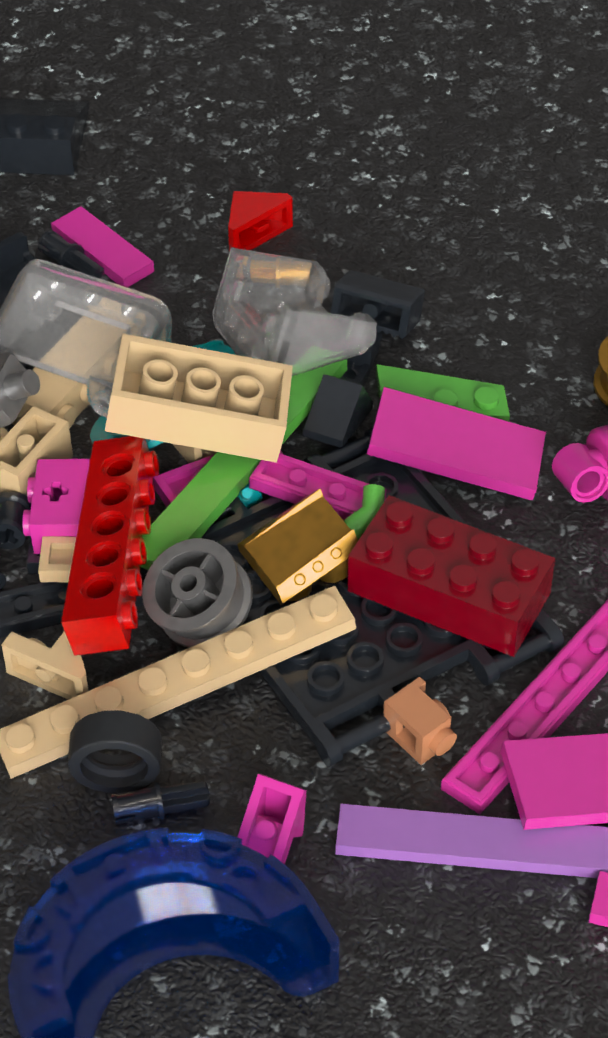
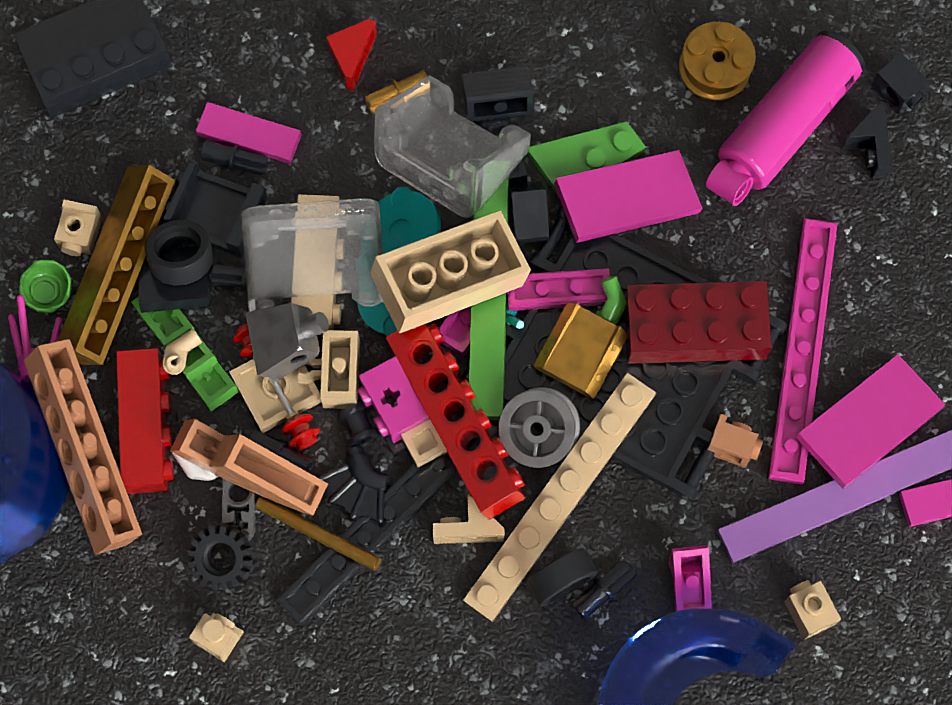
camera: 30 degrees left, 25 degrees up
(398, 942) = (811, 608): none -> tan brick

